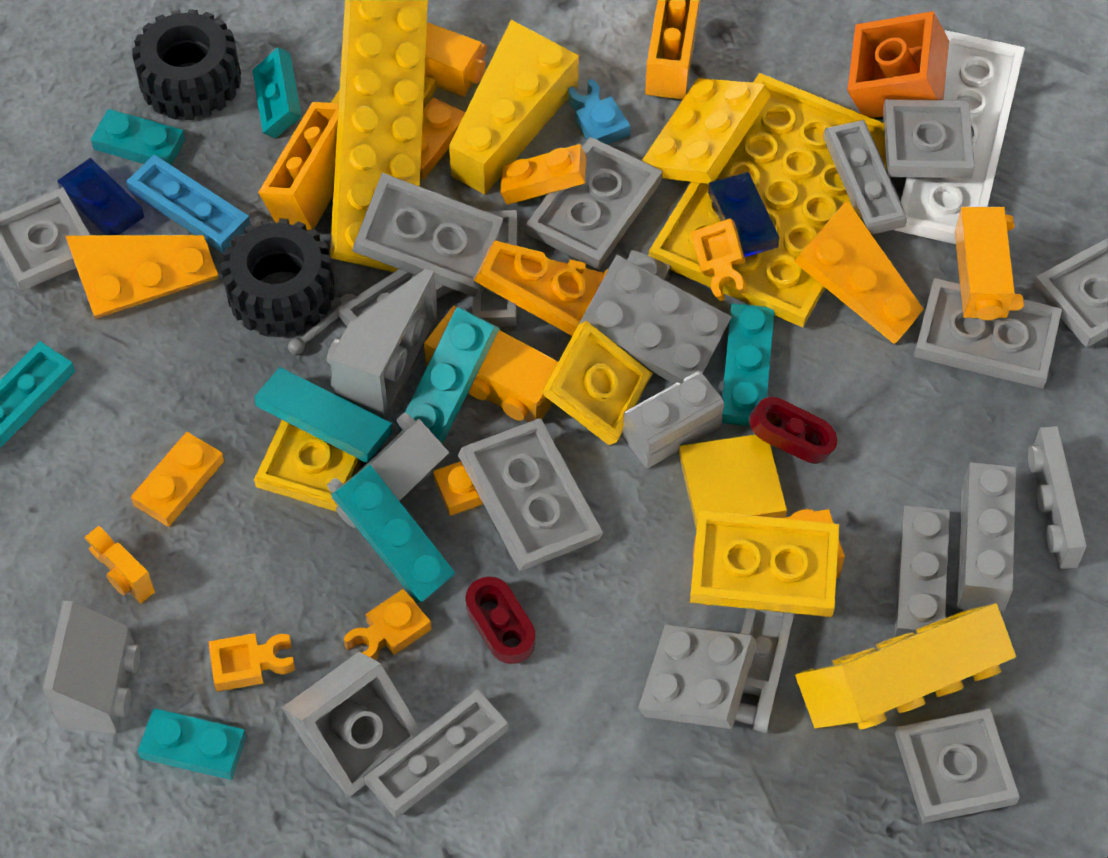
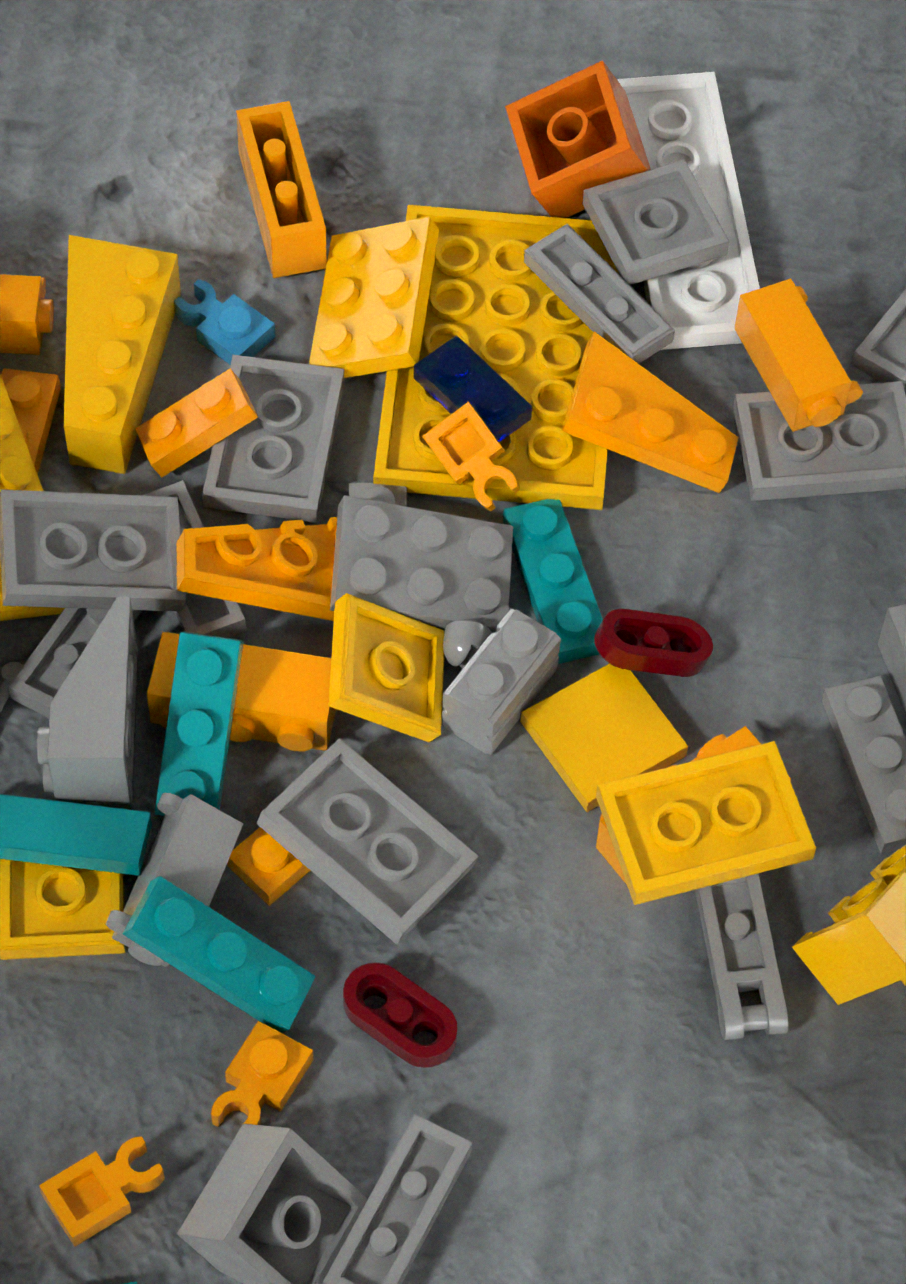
camera: 25 degrees left, 0 degrees up
(659, 380) = (463, 640): none -> light grey hinge
(698, 676) = (677, 994): light grey plate -> none

